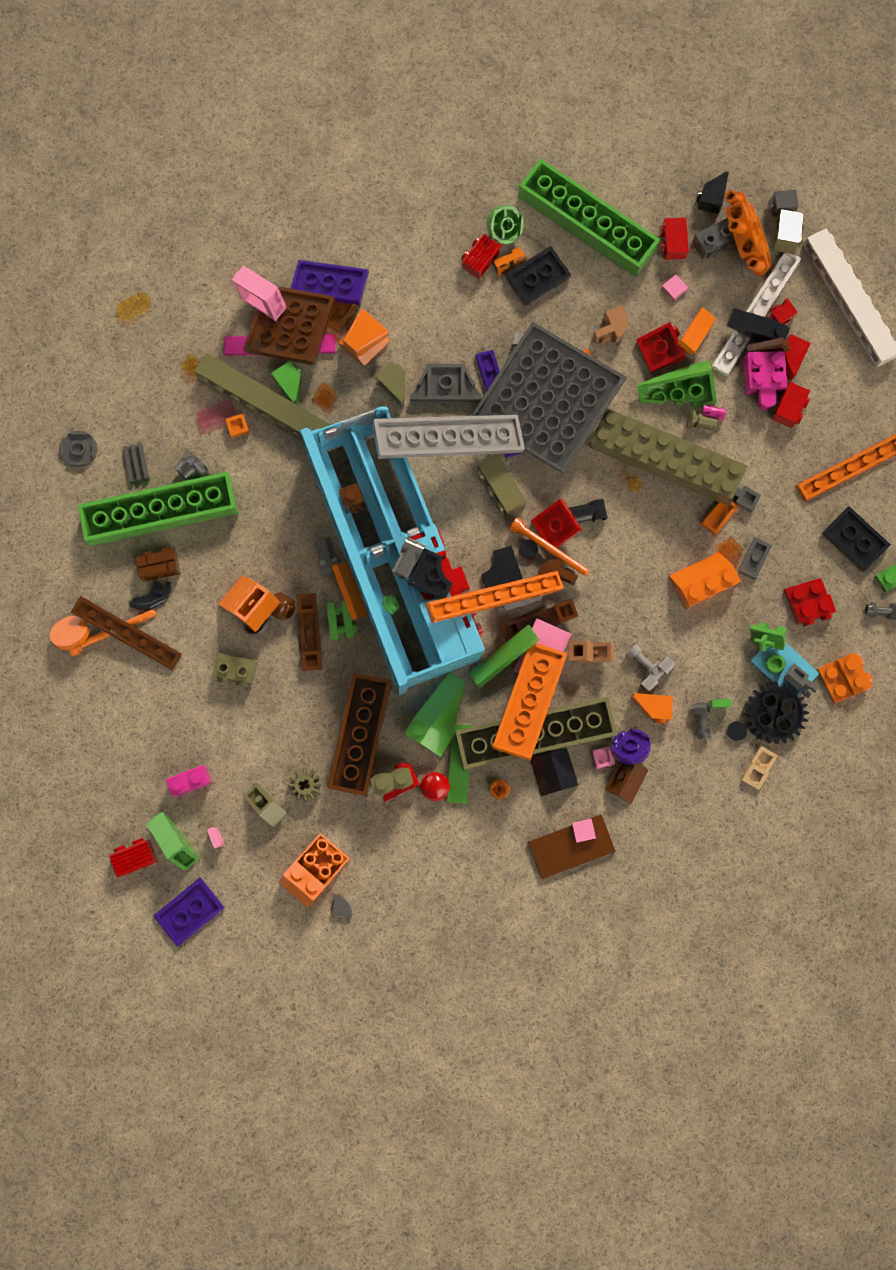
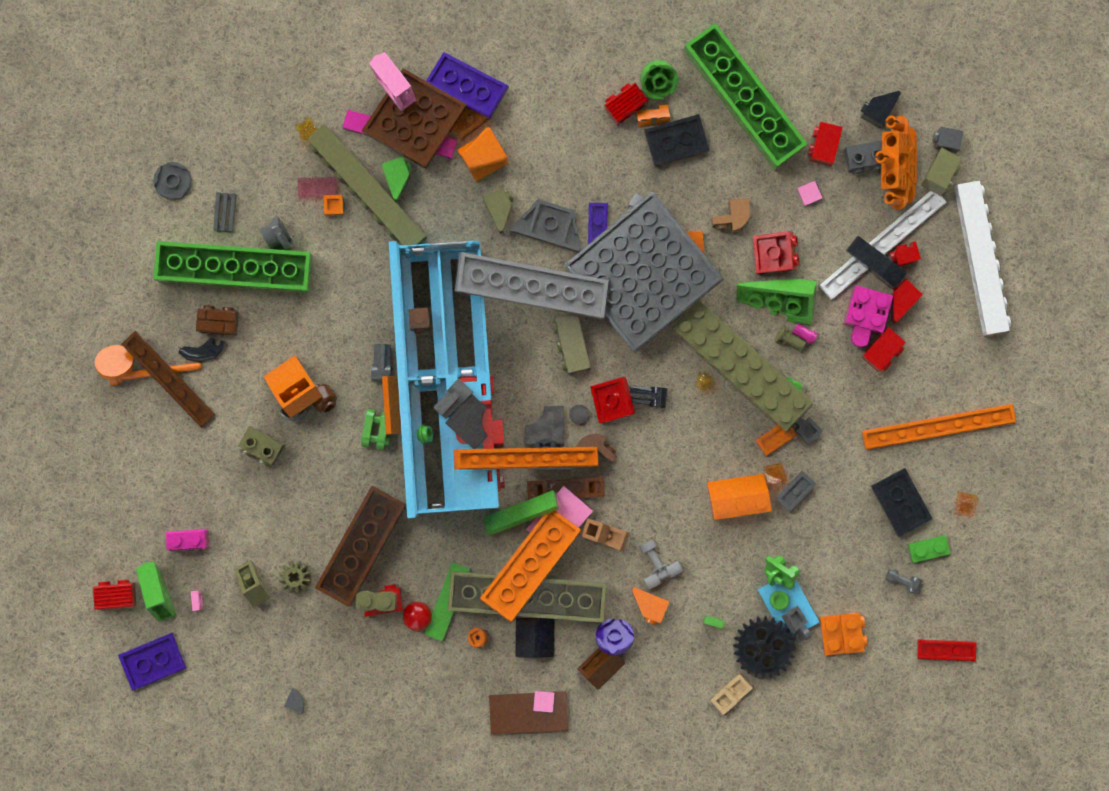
camera: 20 degrees right, 5 degrees up
(133, 306) = (267, 50): clear yellow tile -> none
(309, 632) = (343, 432): reddish brown slope -> none
(313, 870) = (279, 659): orange slope -> none
(325, 396) = (427, 201): clear orange slope -> none
(436, 719) = (437, 553): bright green wedge -> none
(519, 527) = (576, 390): orange piece -> none
(603, 757) = (585, 638): bright pink tile -> none
(697, 331) = (814, 247): orange tile -> none
(701, 709) = (693, 622): dark grey bar -> none
(736, 730) = (721, 652): black tile -> none
(774, 345) = (879, 286): reddish brown tile -> none
(810, 602) = (835, 550): red plate -> none

